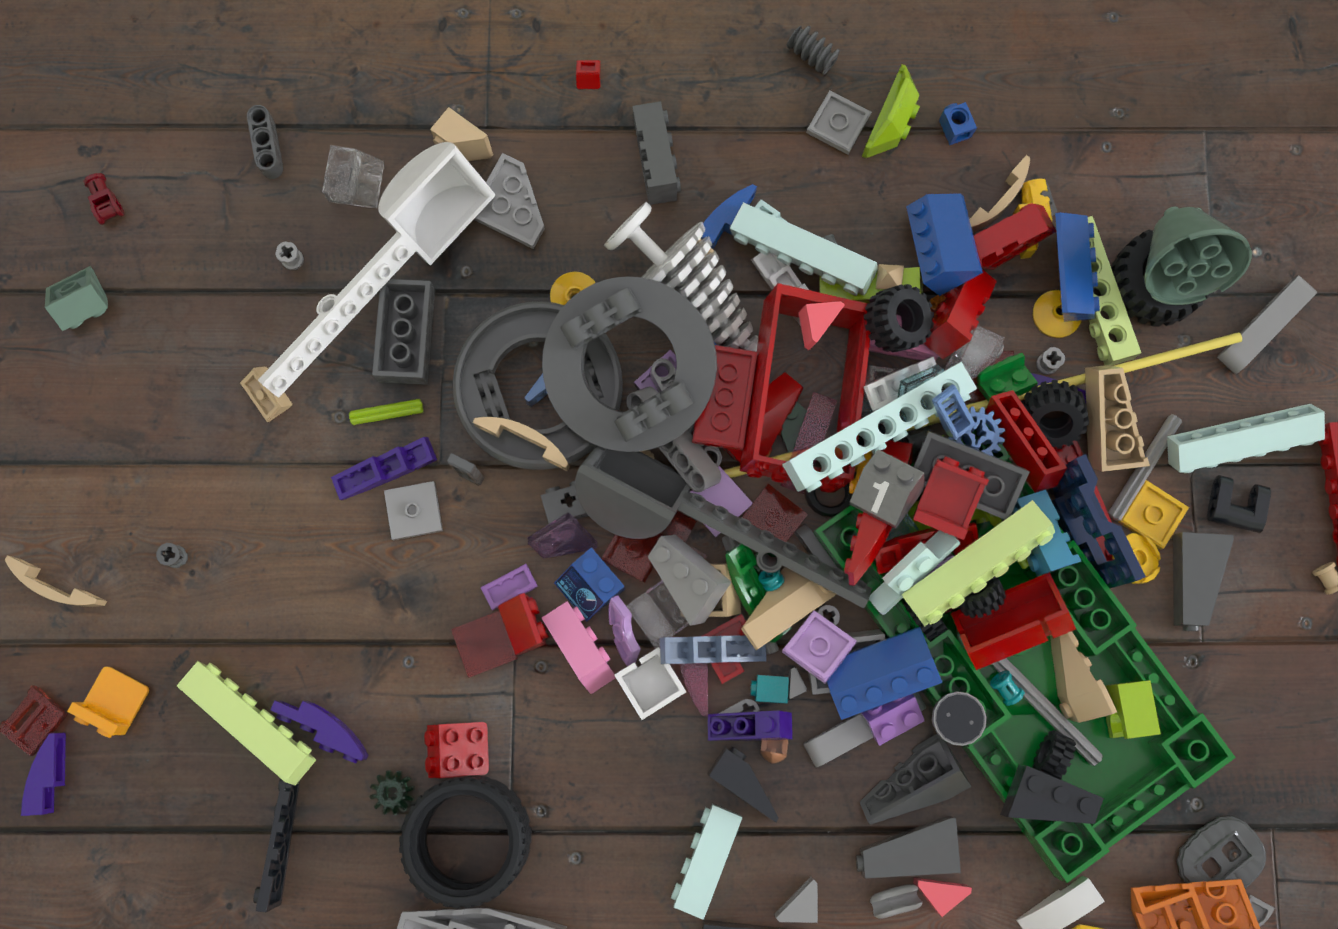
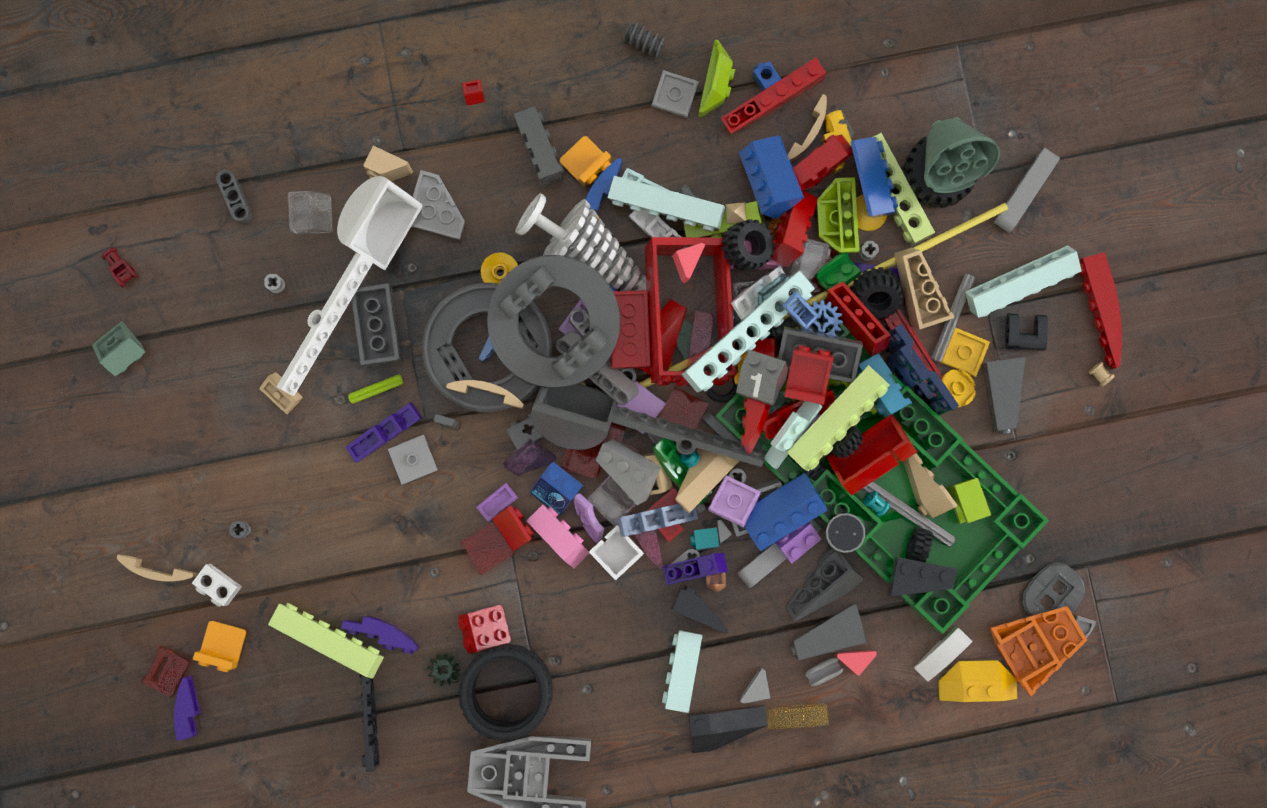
camera: 15 degrees left, 5 degrees up
(128, 616) = (219, 580): none -> white brick
(710, 182) = (585, 161): none -> light orange bracket
(965, 147) = (775, 96): none -> red slope
(1020, 308) = (839, 216): none -> lime wedge

